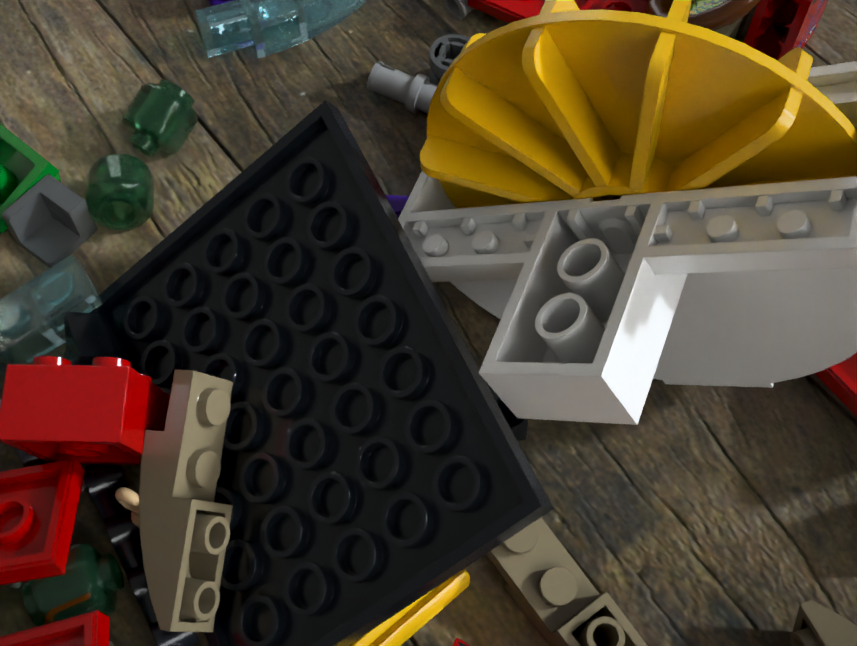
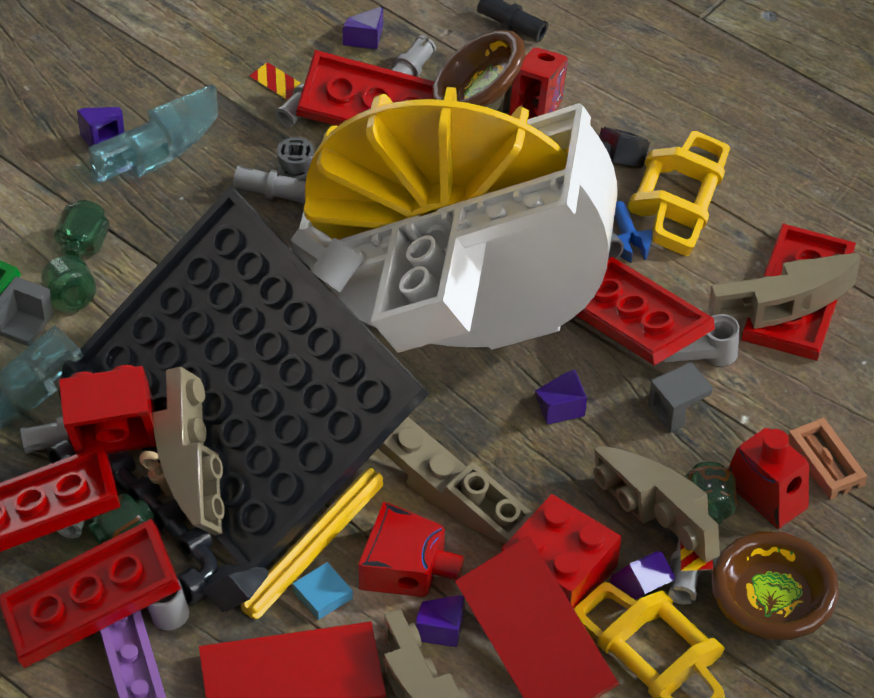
camera: 15 degrees left, 10 degrees down
(440, 243) = (327, 257): none -> light grey piece
(758, 488) = (562, 398): none -> dark purple slope

